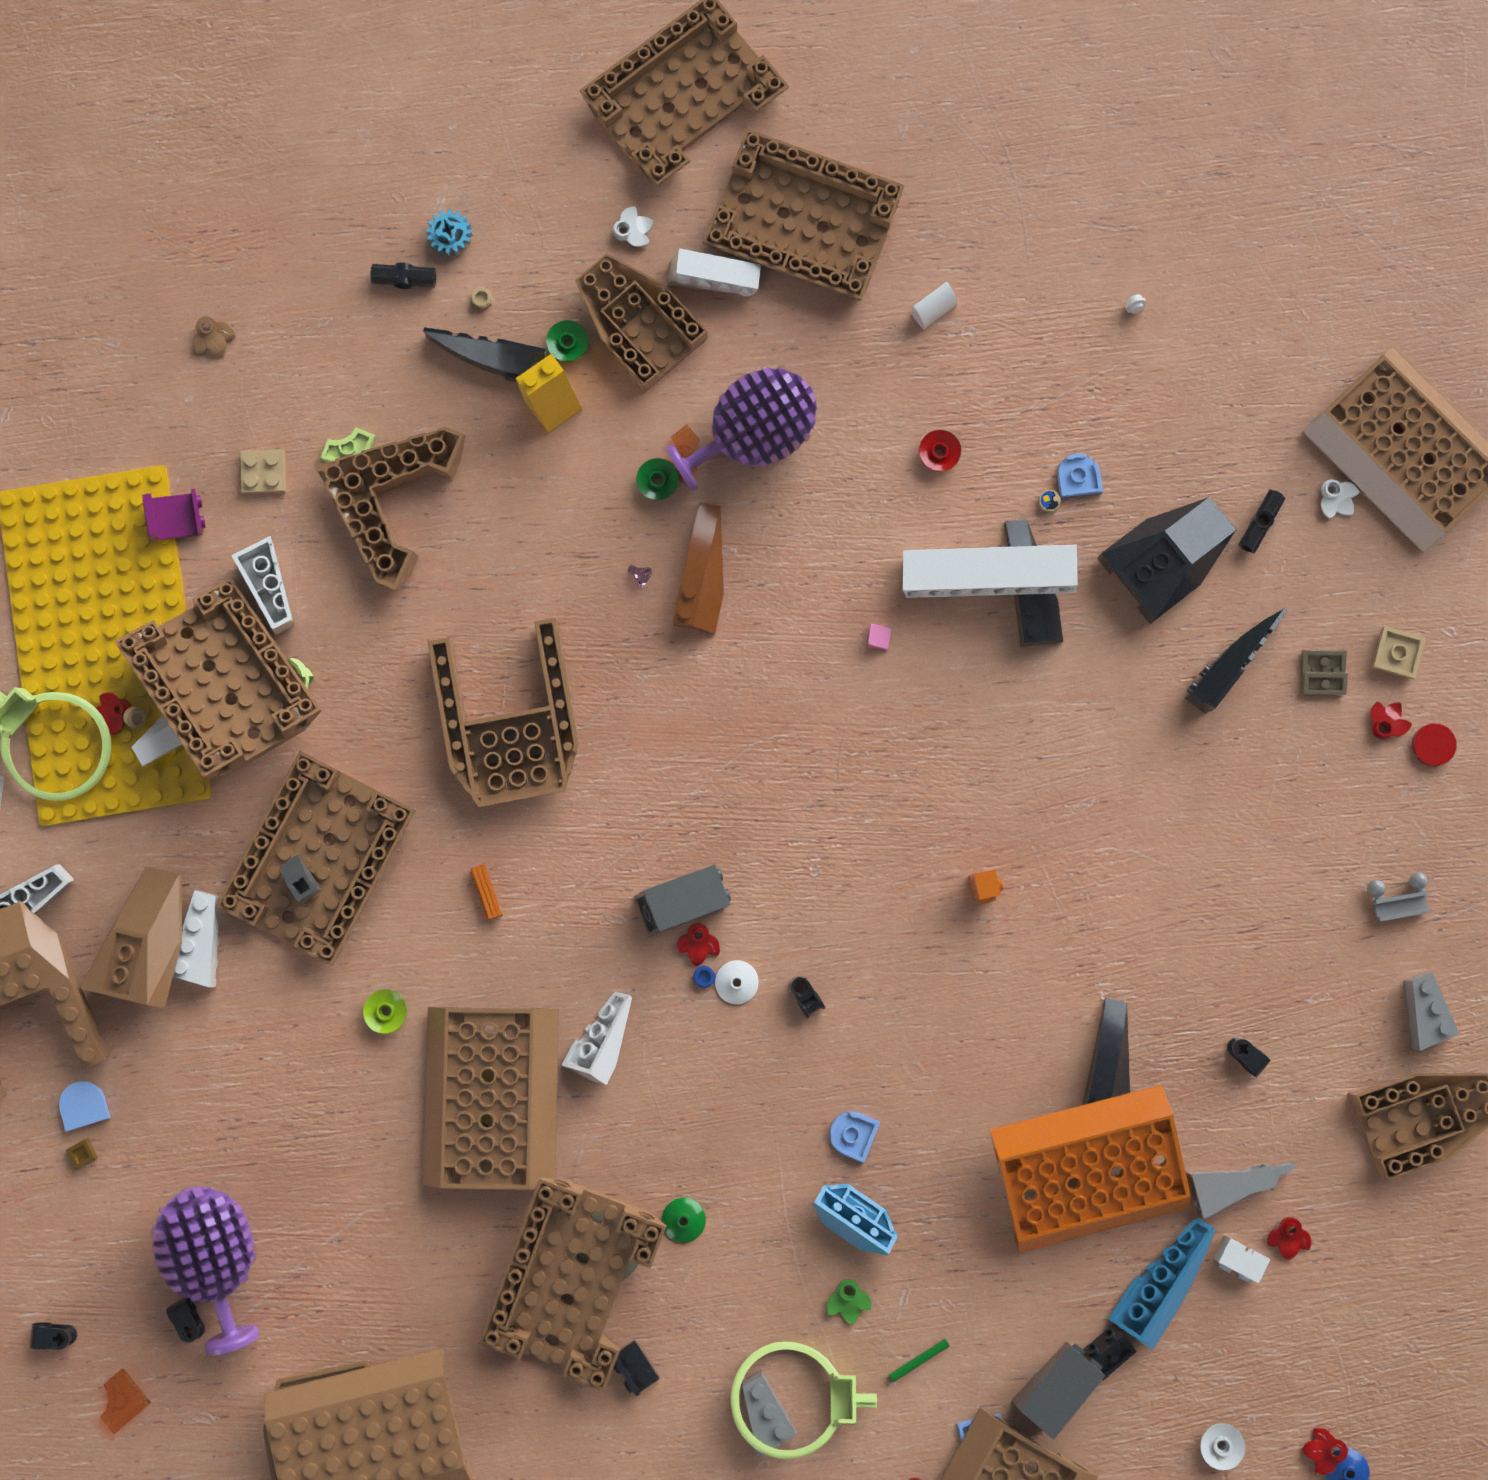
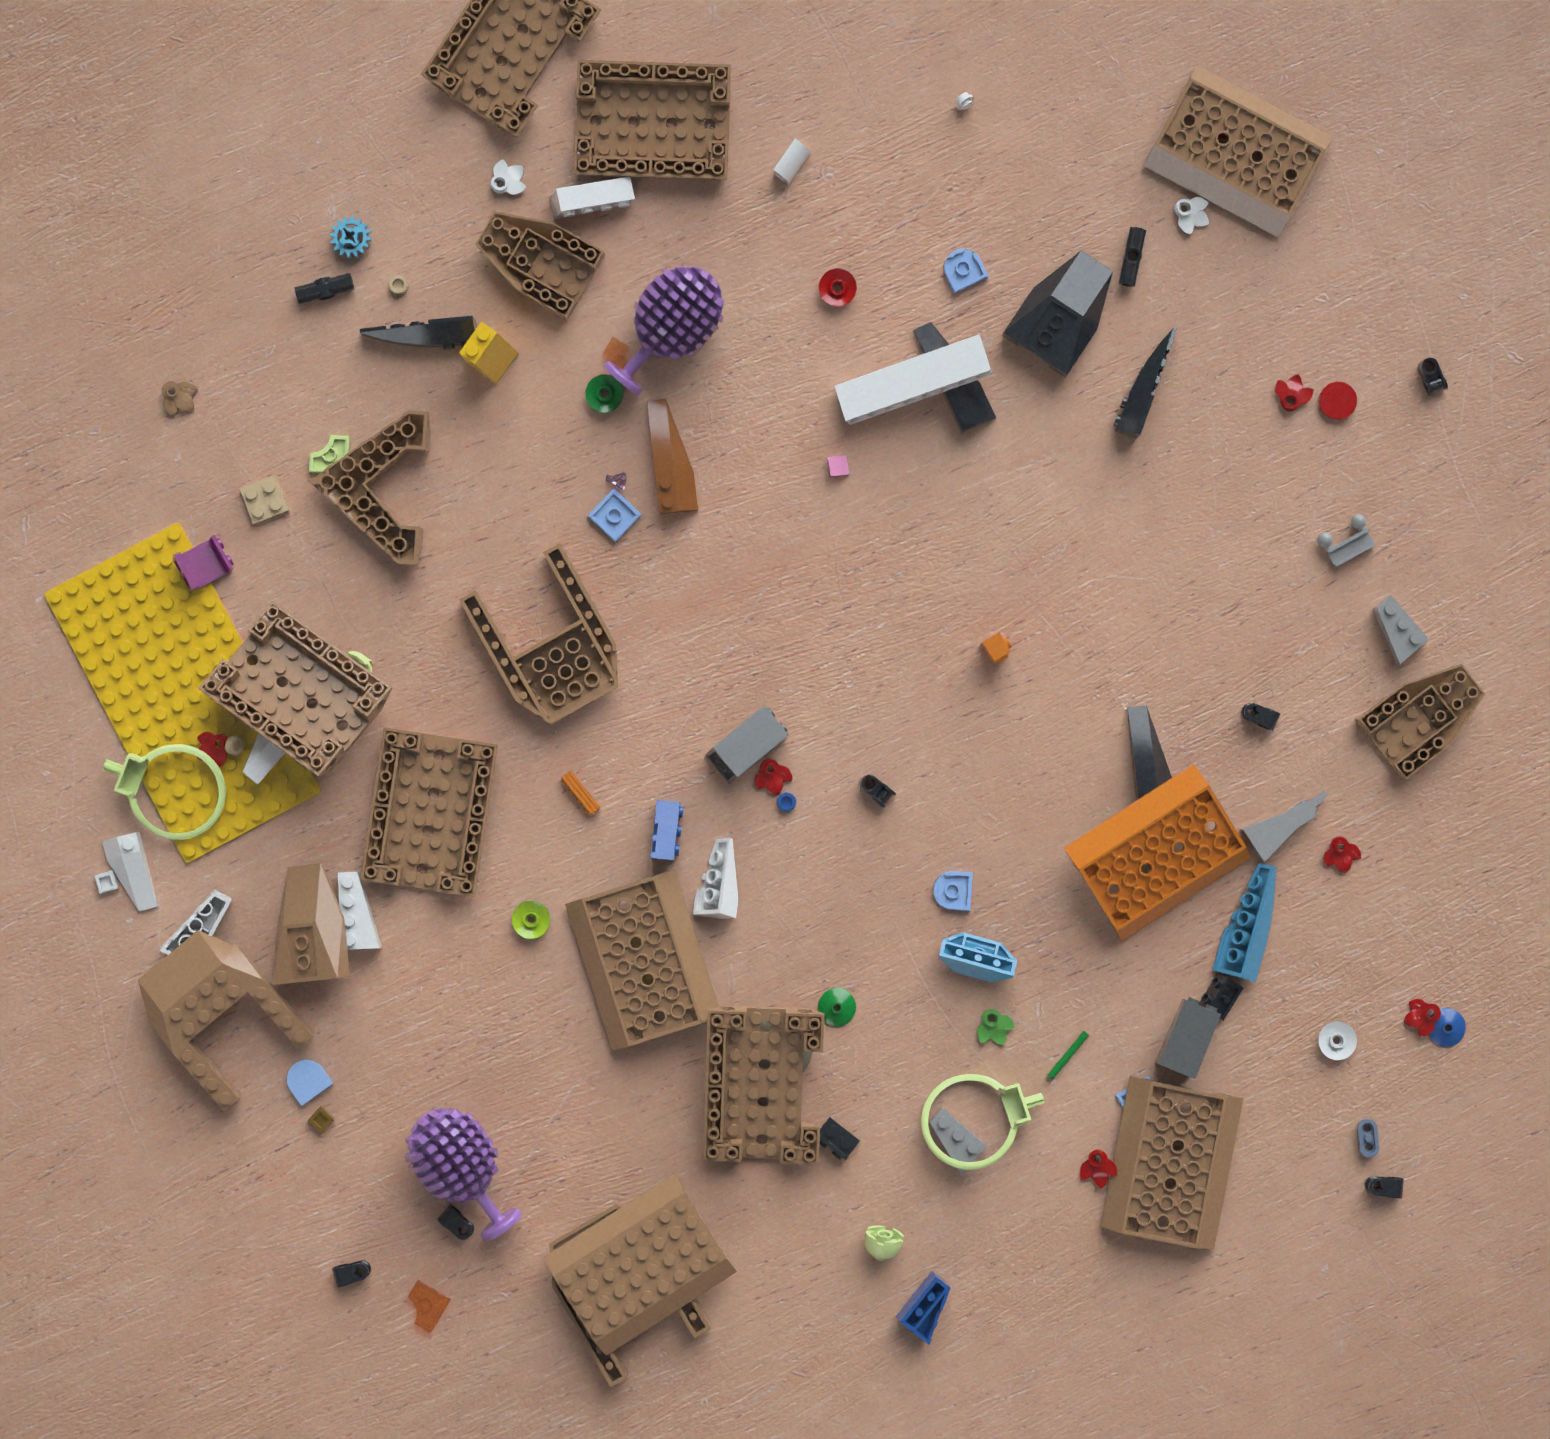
camera: 15 degrees left, 5 degrees up
(263, 576) = (299, 591): white wedge -> none
(299, 879) = (422, 834): dark grey slope -> none
(564, 964) = (666, 830): none -> wedge
(565, 331) = (483, 289): green dish -> none
(624, 610) = (614, 515): none -> light blue tile
(725, 978) = (805, 801): white dish -> none
(1049, 501) = (945, 299): tile -> none
(1234, 1257) = (1313, 886): white brick -> none
(1324, 672) = (1225, 369): dark tan slope -> none
(1398, 652) = (1283, 331): tan plate -> none

